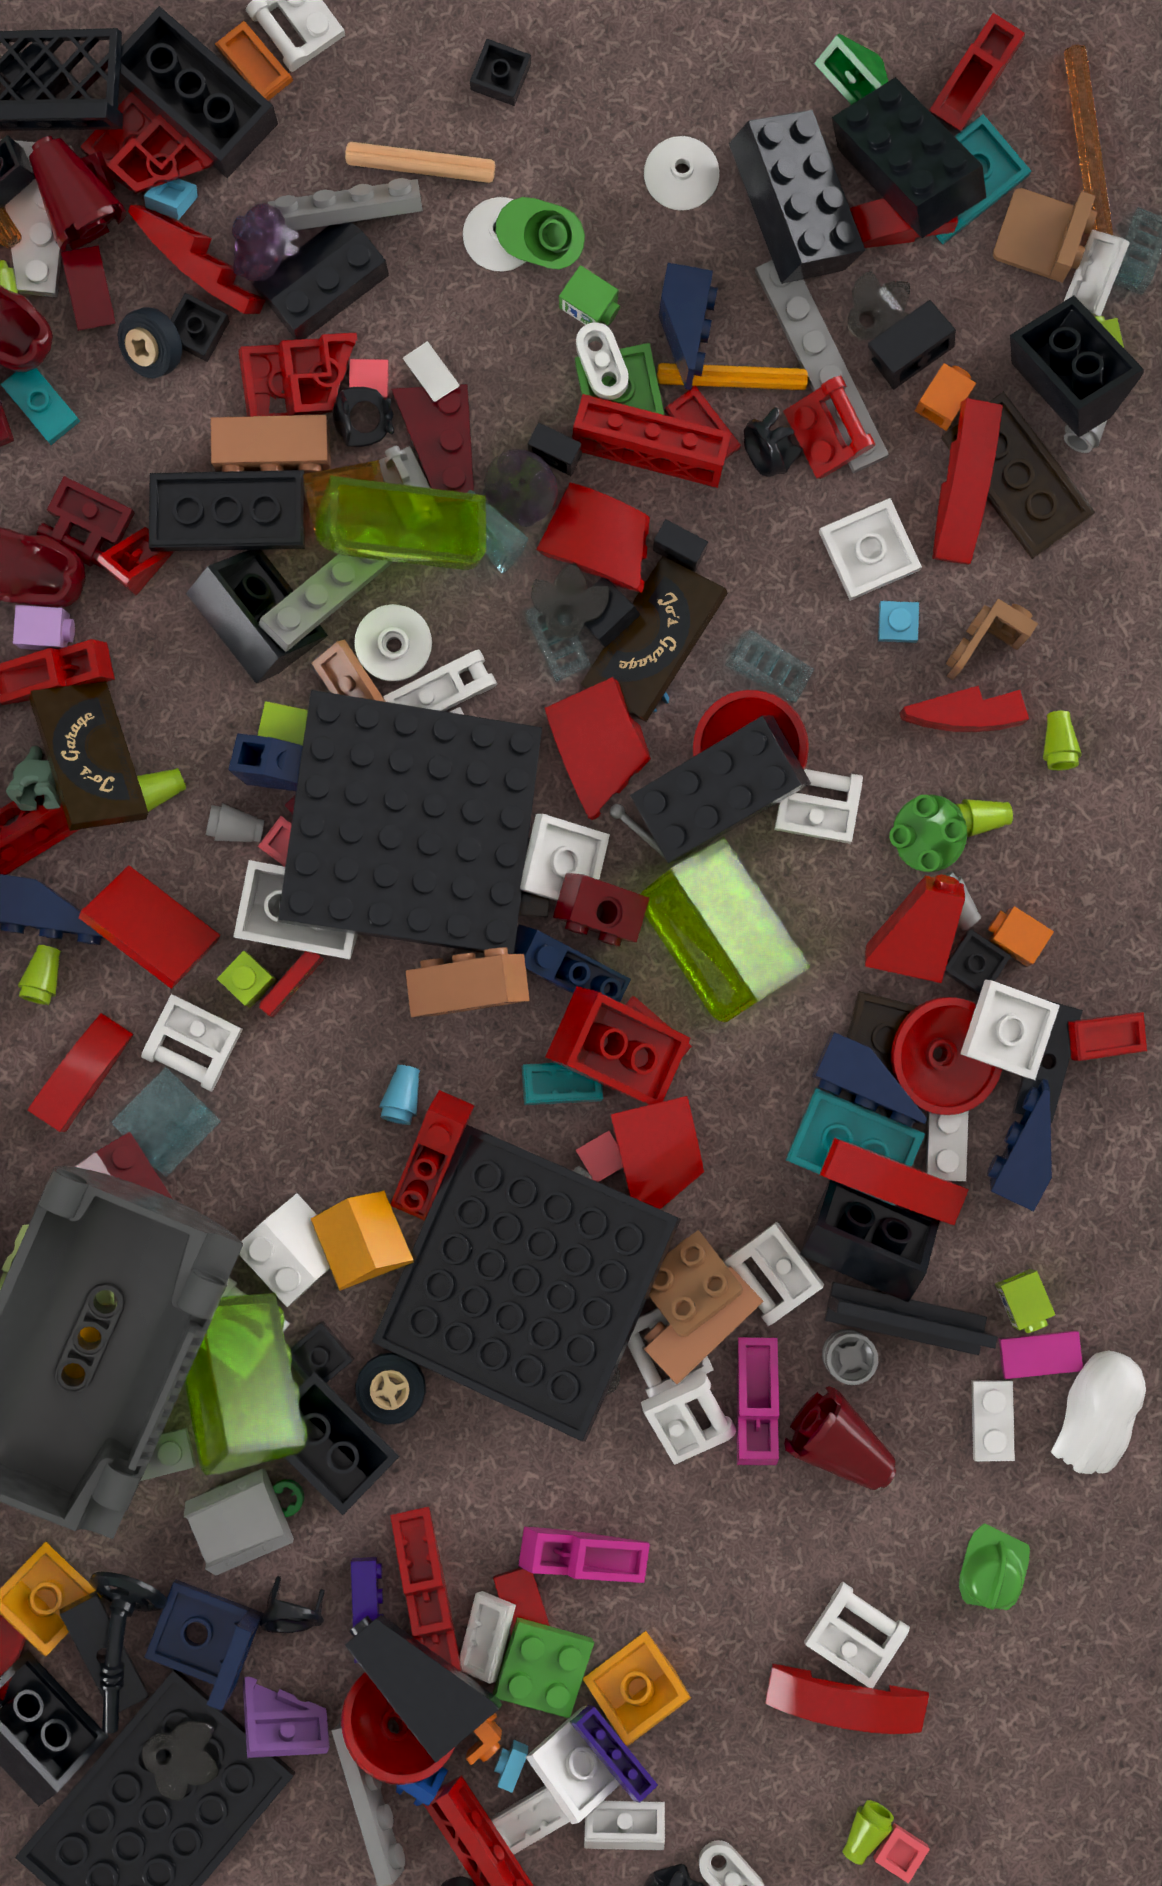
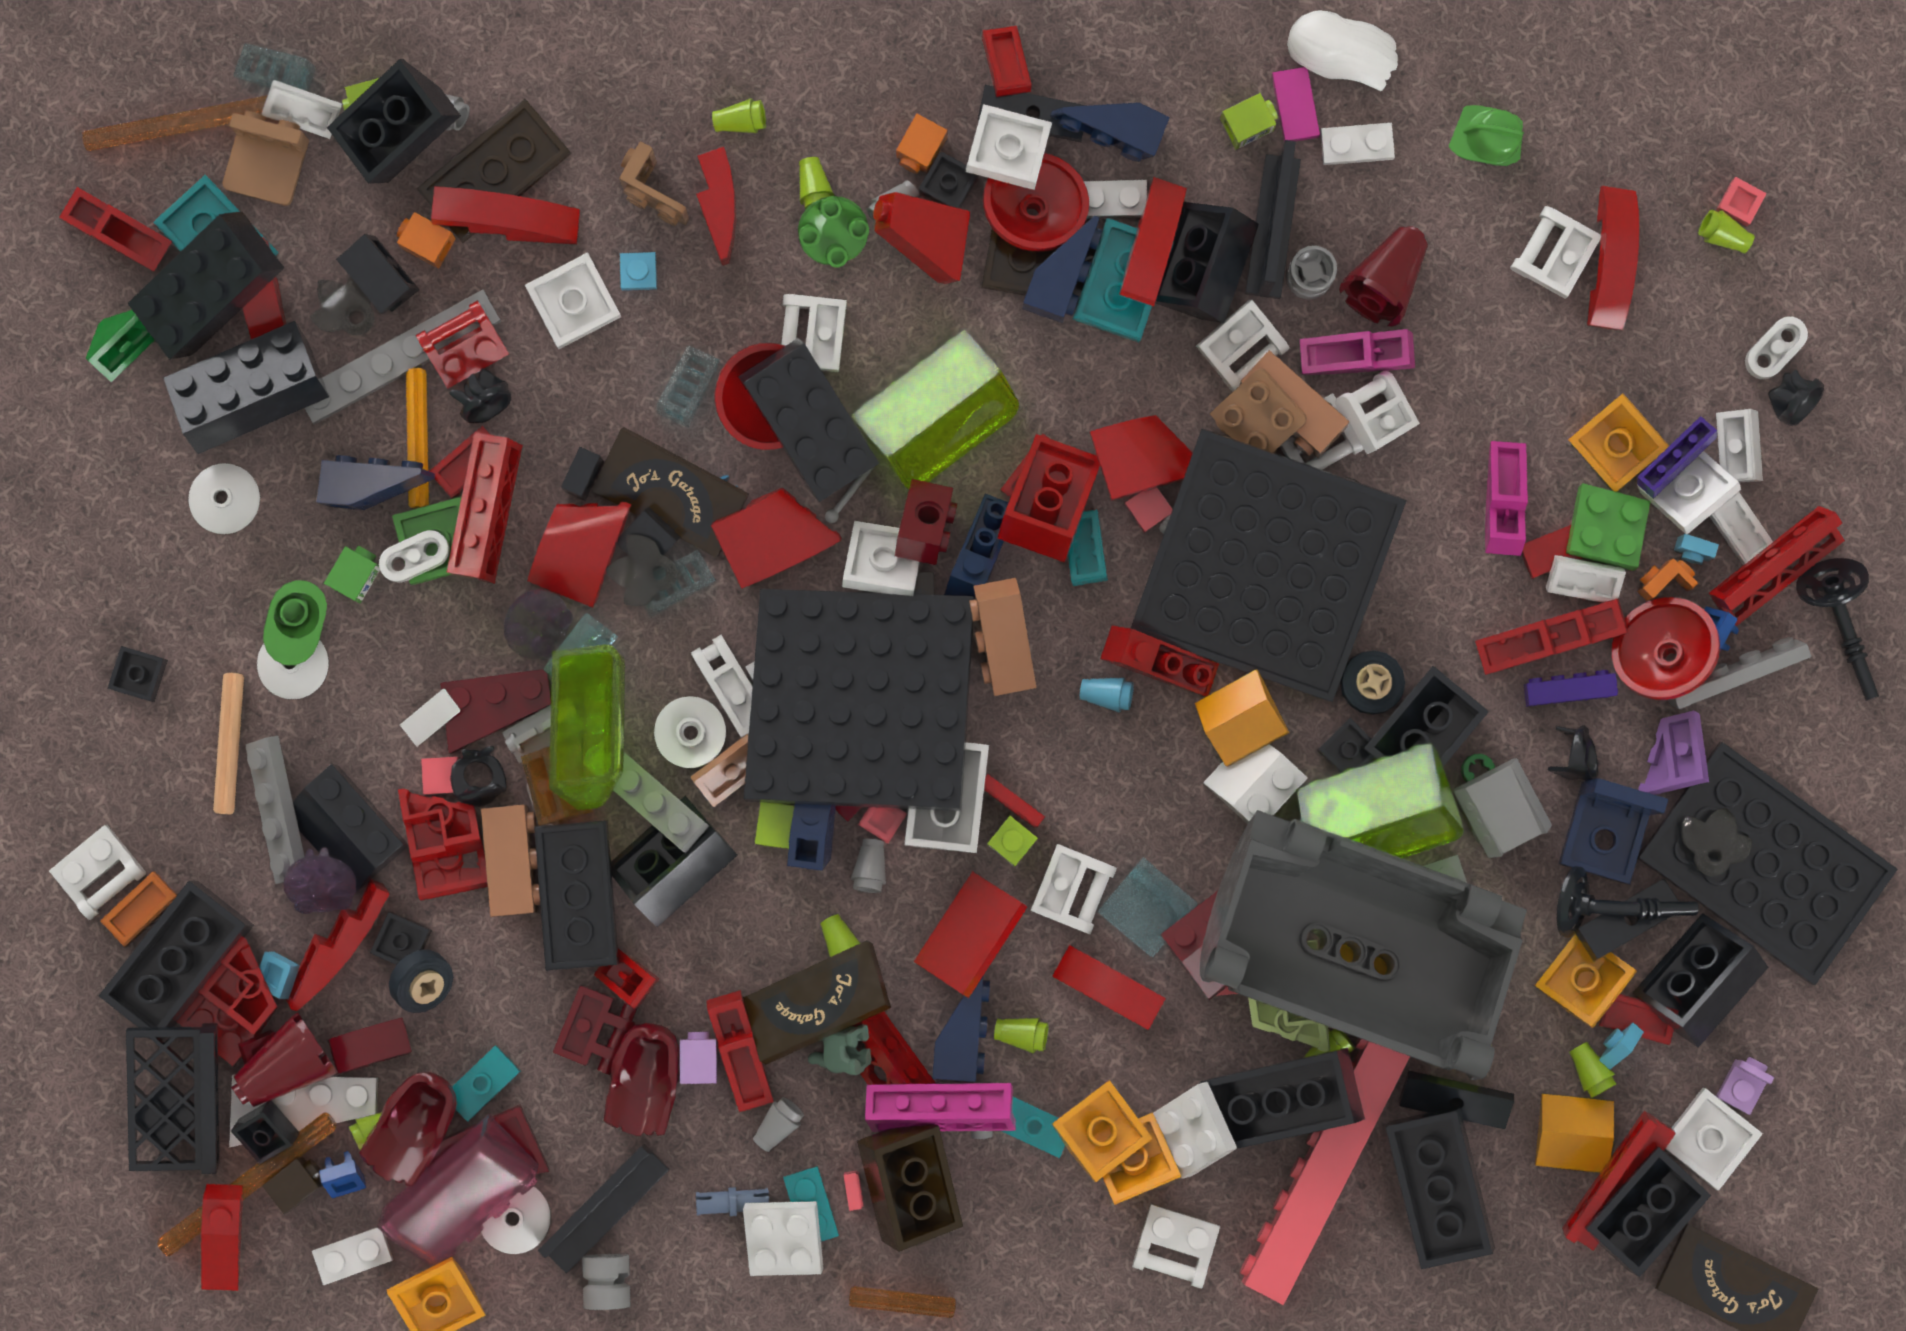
camera: 95 degrees left, 0 degrees up
(422, 1687) = (1636, 625): black slope -> none
(555, 448) = (498, 595): black piece -> none

